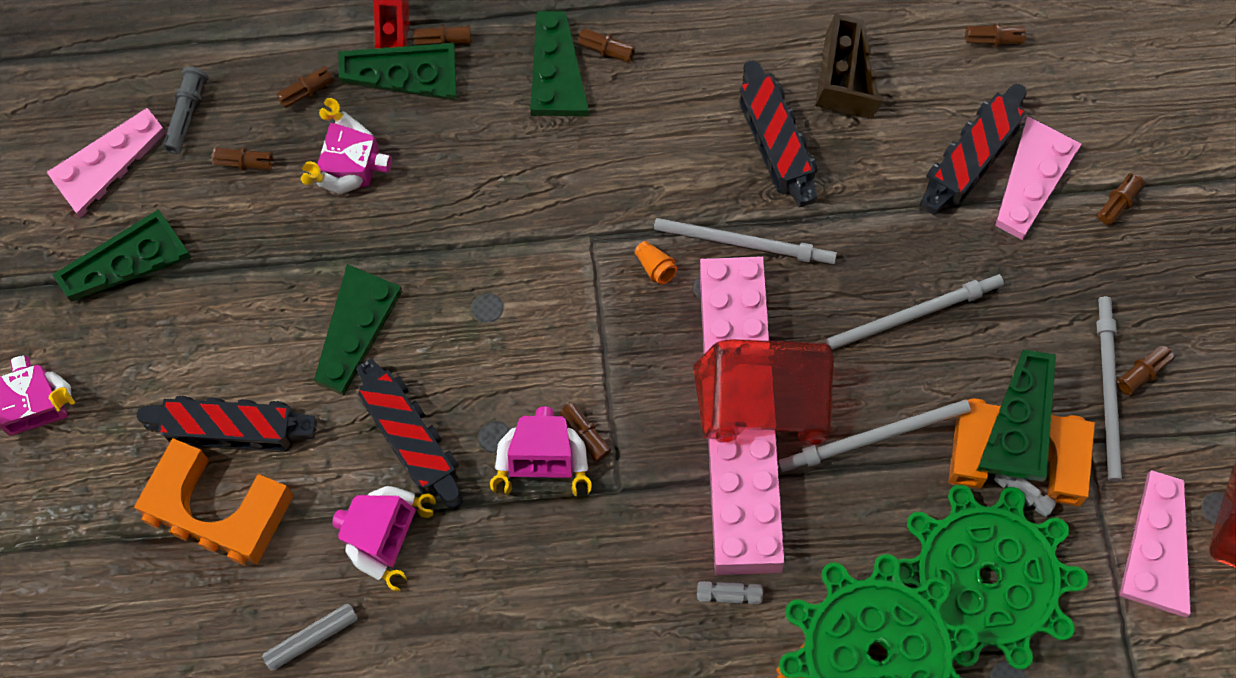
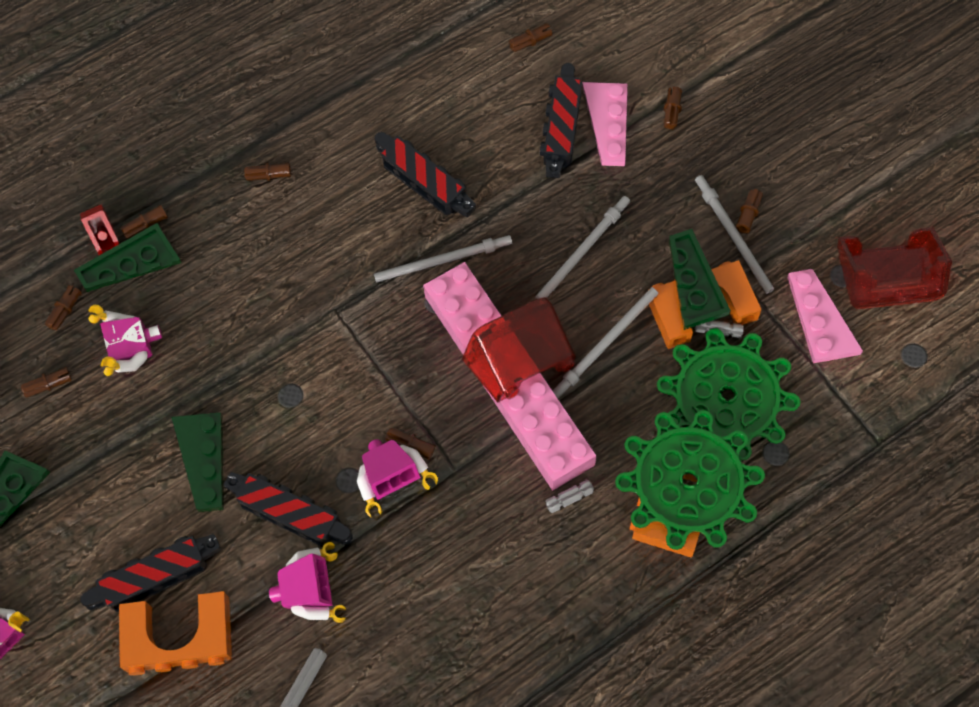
camera: 30 degrees left, 0 degrees up
(556, 74) = (242, 208): dark green wing -> none
(657, 264) = (392, 304): orange cone -> none
(846, 70) = (446, 109): dark brown wedge -> none

